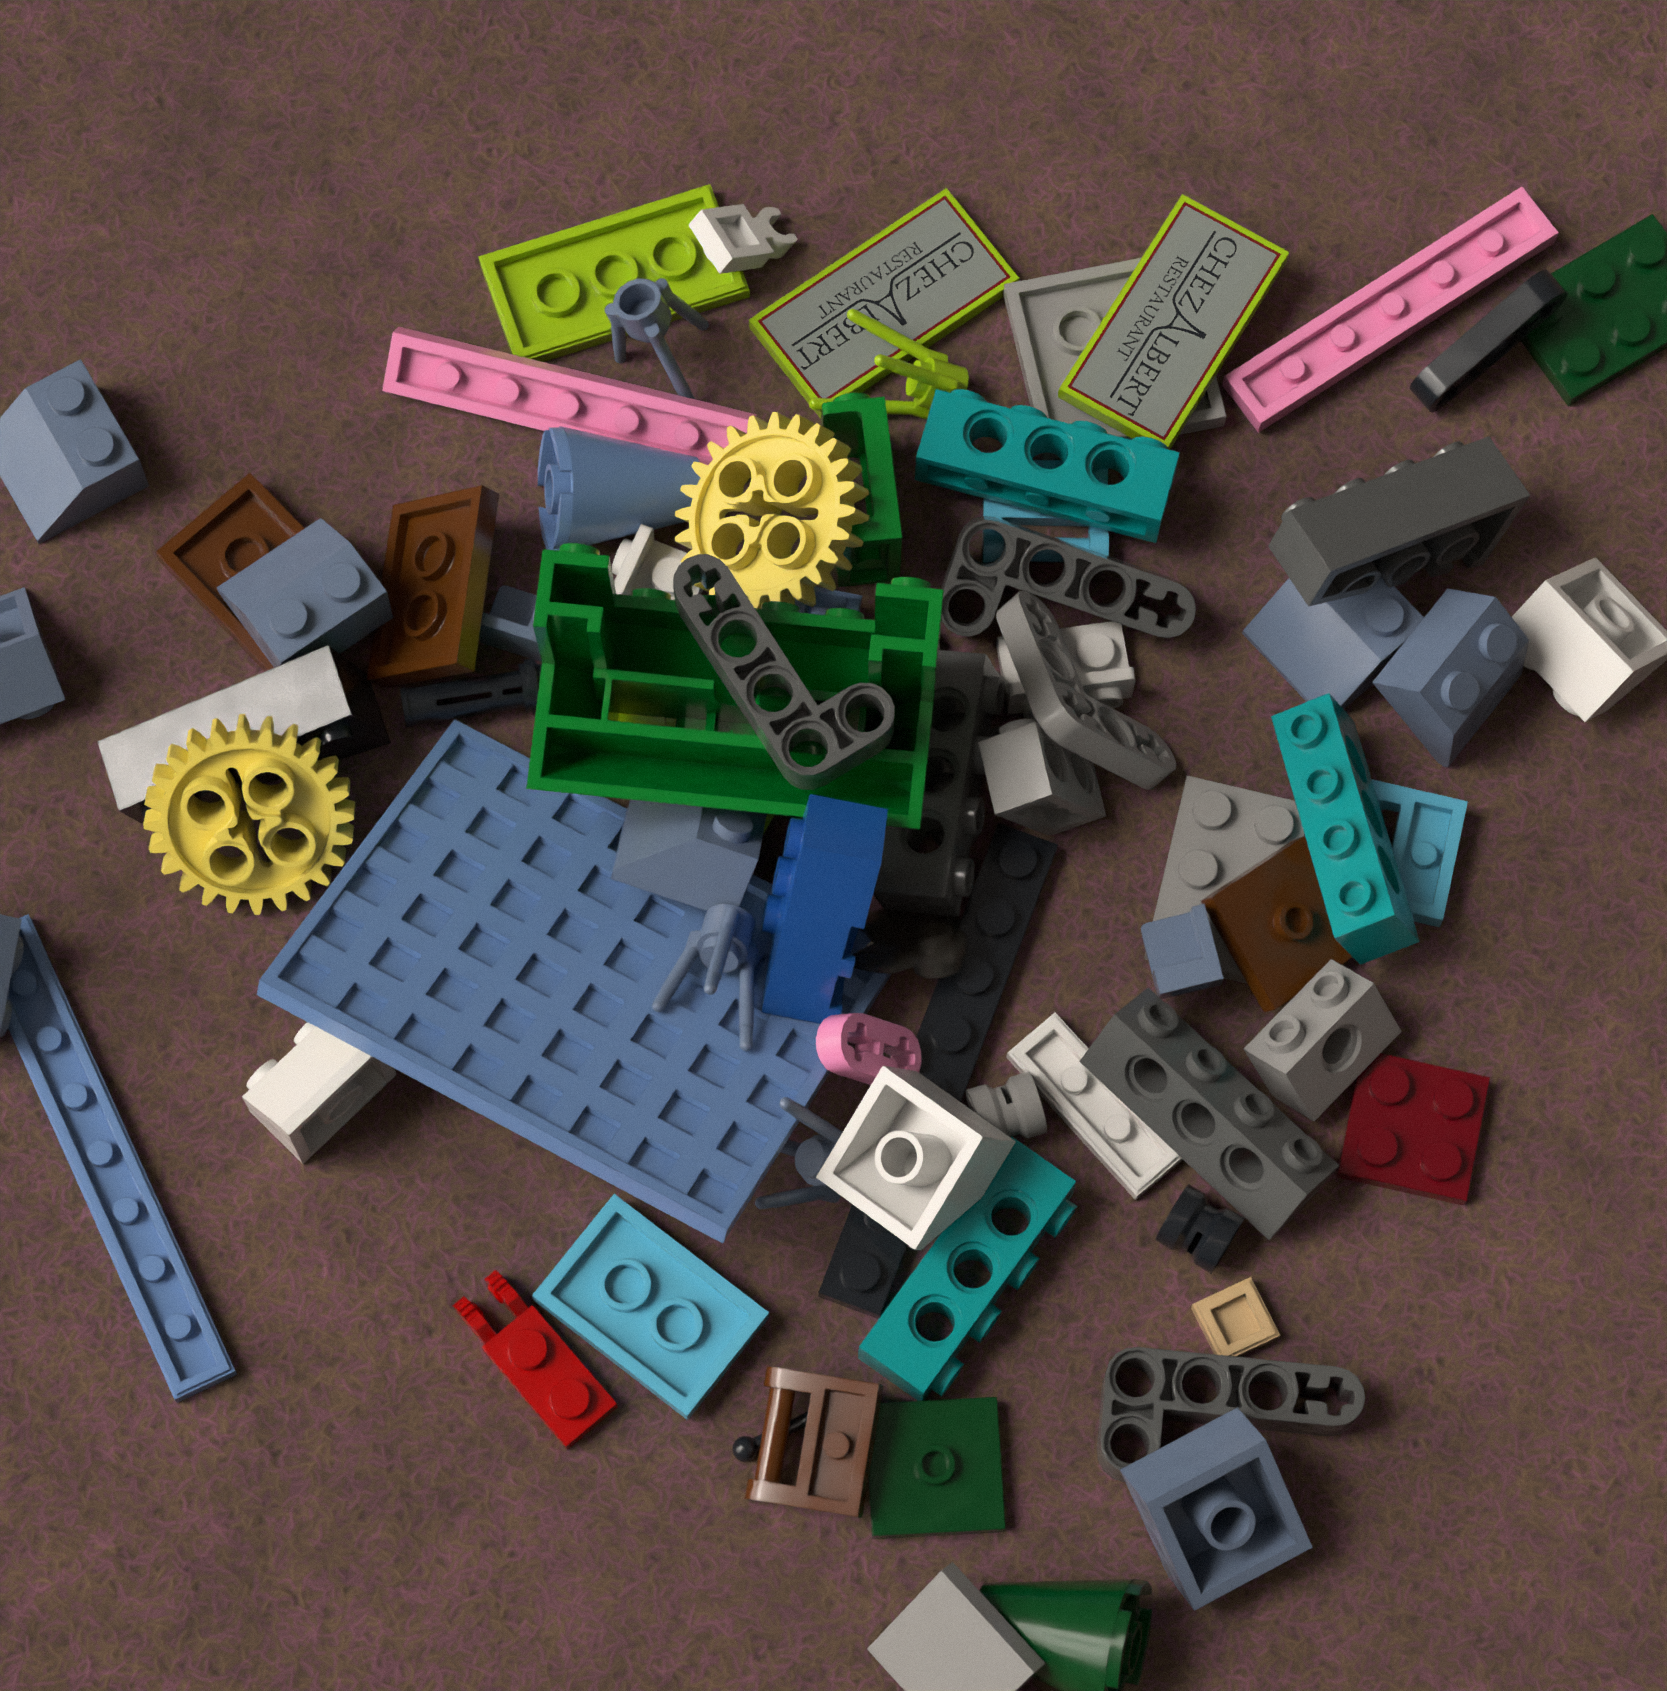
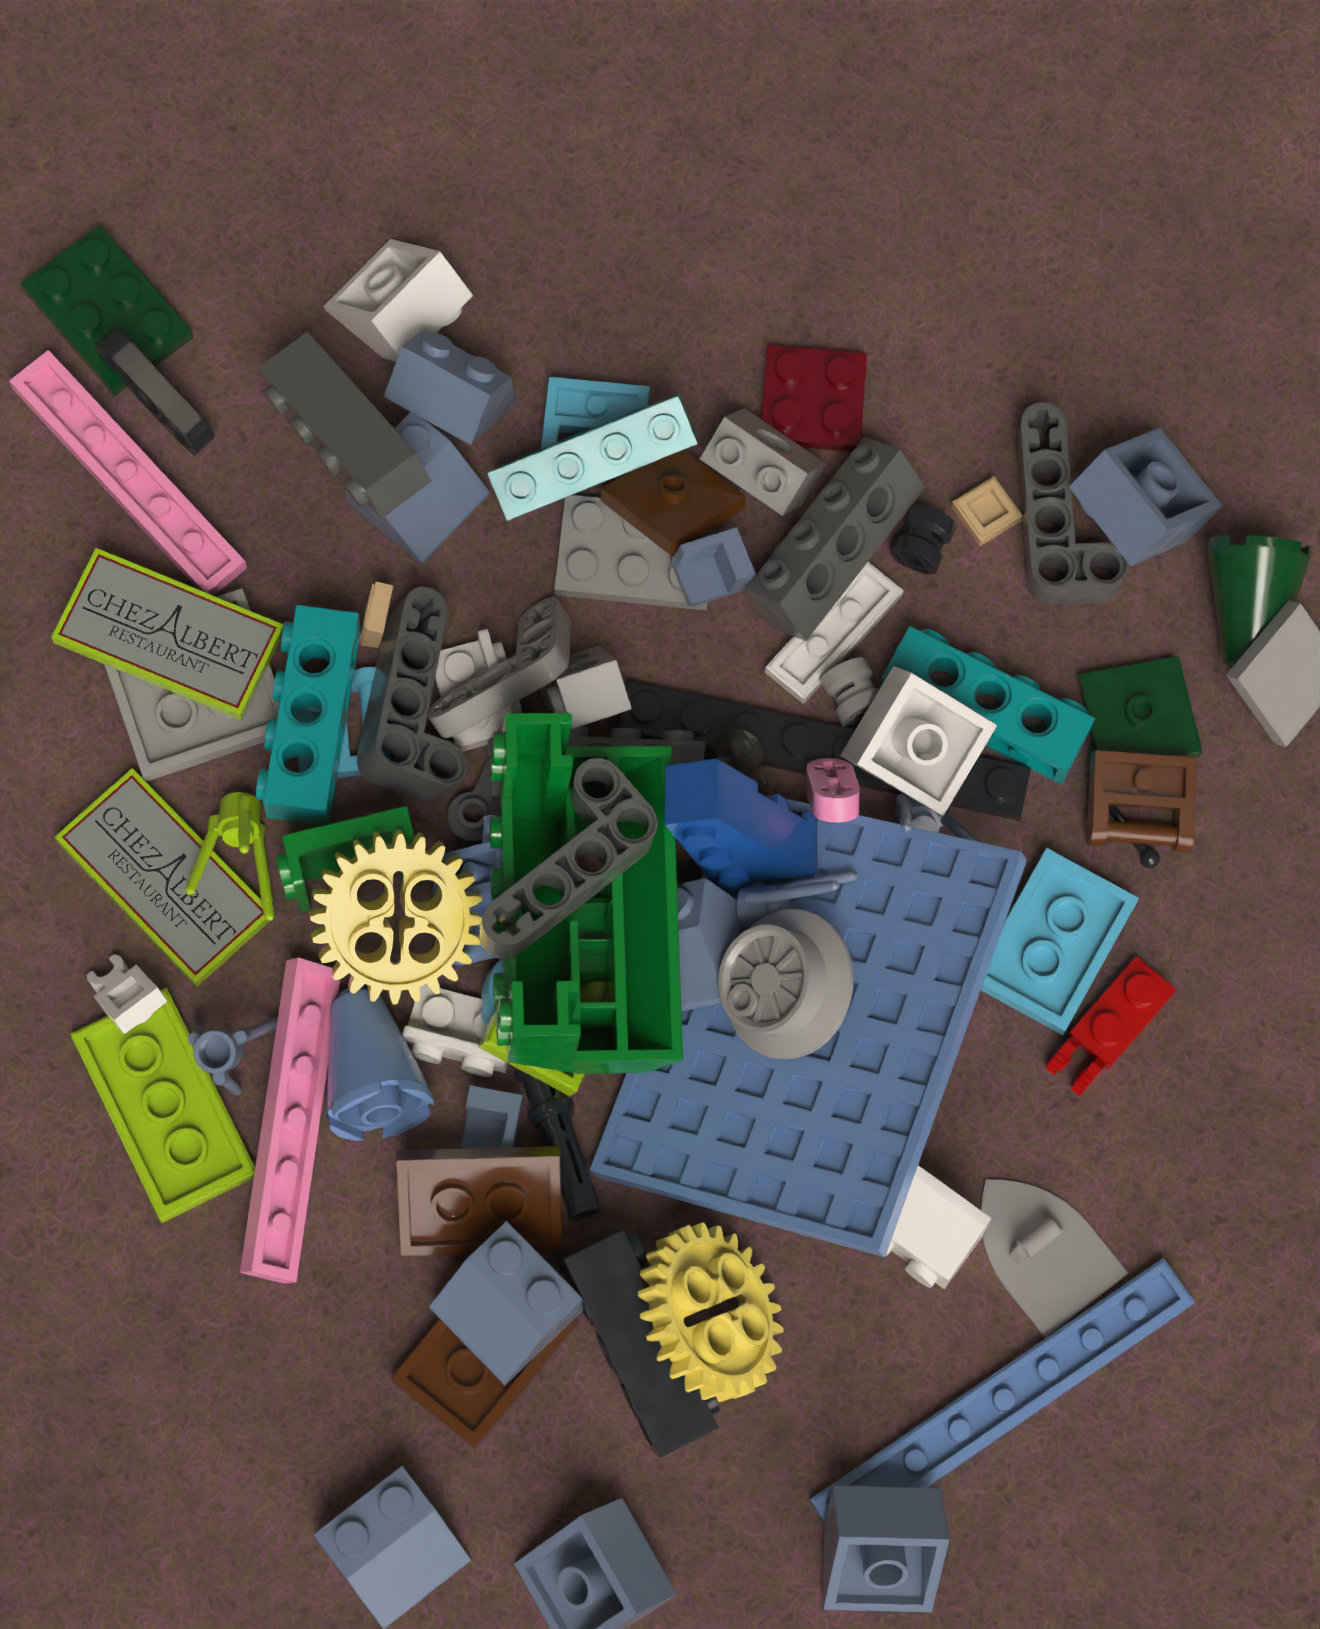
camera: 100 degrees left, 0 degrees up
(271, 1235) = (1045, 1253): none -> light grey shield
(615, 933) = (787, 983): none -> light grey wheel
(1176, 561) = (375, 614): none -> tan tile

